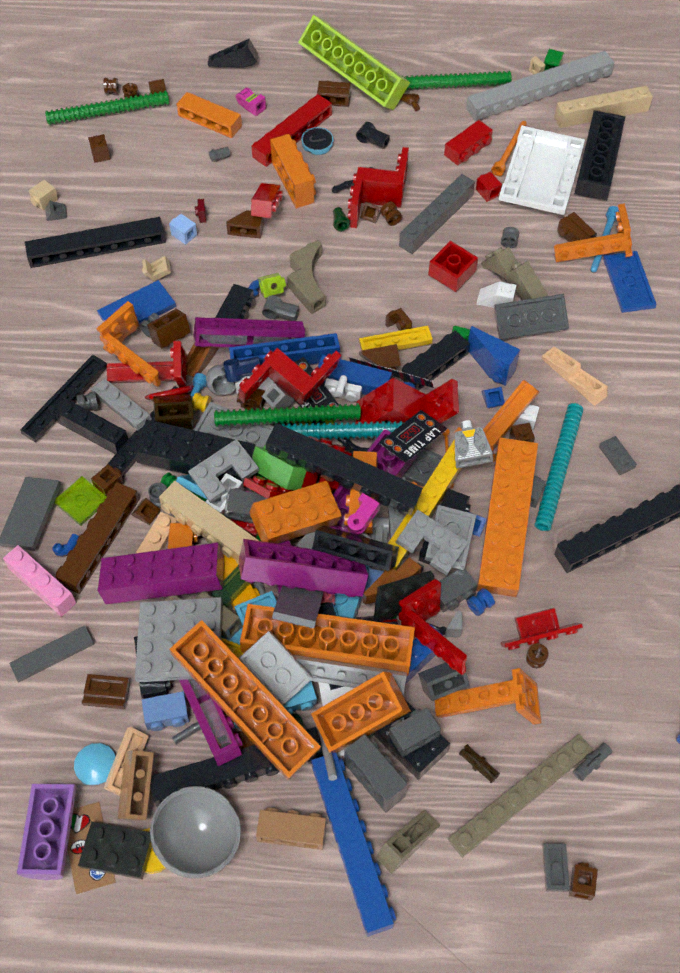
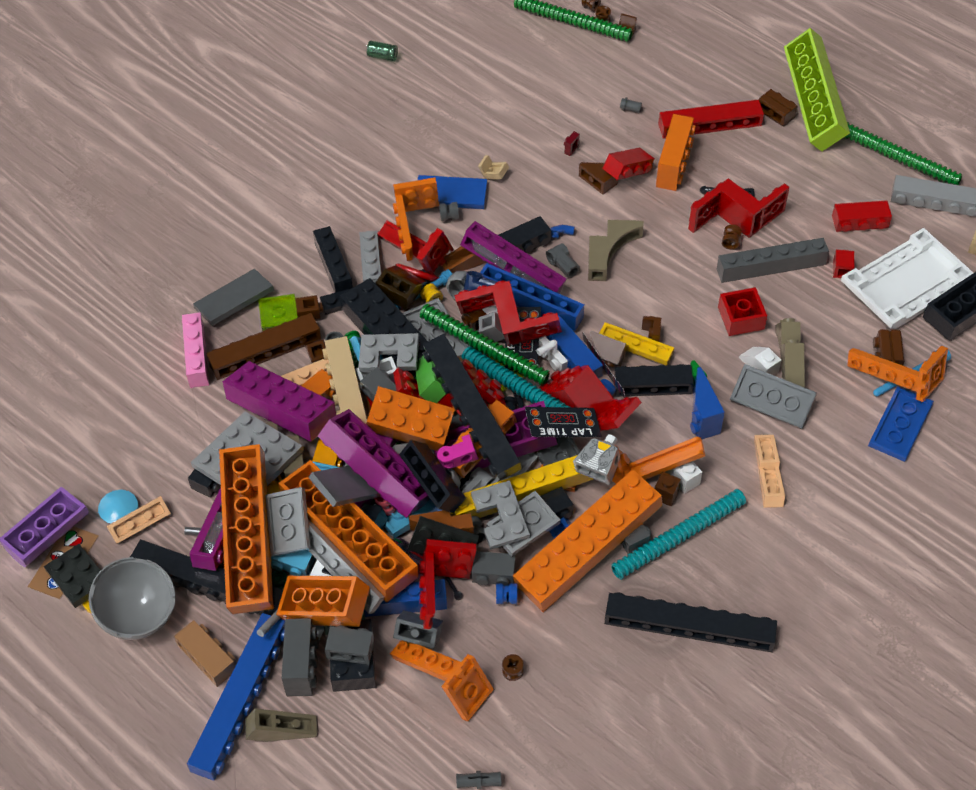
camera: 40 degrees right, 5 degrees down
(42, 194) = (457, 61): tan brick -> none
(51, 653) = (159, 408): dark grey tile -> none
(55, 211) = (458, 79): dark grey slope -> none
(62, 550) = (230, 337): blue arm -> none
(74, 386) = (339, 226): black plate -> none
(88, 401) = (347, 240): dark grey wheel -> none
(94, 242) = (465, 121): black brick -> none
(99, 148) = (534, 47): reddish brown brick -> none
(105, 691) = (169, 460): reddish brown plate -> none
(135, 785) = (126, 537): medium nougat brick -> none
(165, 711) = (193, 502): medium blue brick -> none
(169, 328) = (456, 220): reddish brown brick -> none
(183, 229) = (543, 149): light blue brick -> none
(209, 115) = (651, 68): orange brick -> none
(232, 587) = (315, 448): clear green tile -> none
(236, 56) = (720, 31): black slope -> none
(250, 101) = (698, 74): dark pink leg -> none
(266, 281) = (578, 232): lime brick -> none
(317, 140) = (726, 140): black tile -> none
(340, 220) = (681, 218): dark green cone -> none
(370, 134) = (777, 159): black piece -> none
(370, 212) = (715, 226): reddish brown slope -> none
(411, 99) = (845, 150): reddish brown animal -> none
(455, 627) = (468, 596): light grey slope -> none
(479, 763) = (388, 713): dark brown pin -> none
(493, 397) = (676, 438): blue slope -> none
(499, 166) = (871, 253): orange piece -> none
(510, 237) = (821, 318): dark grey wheel -> none
(520, 795) = (399, 761): dark tan plate -> none
(538, 626) = (534, 644): red bracket -> none
(617, 455) = (742, 560): dark grey plate -> none

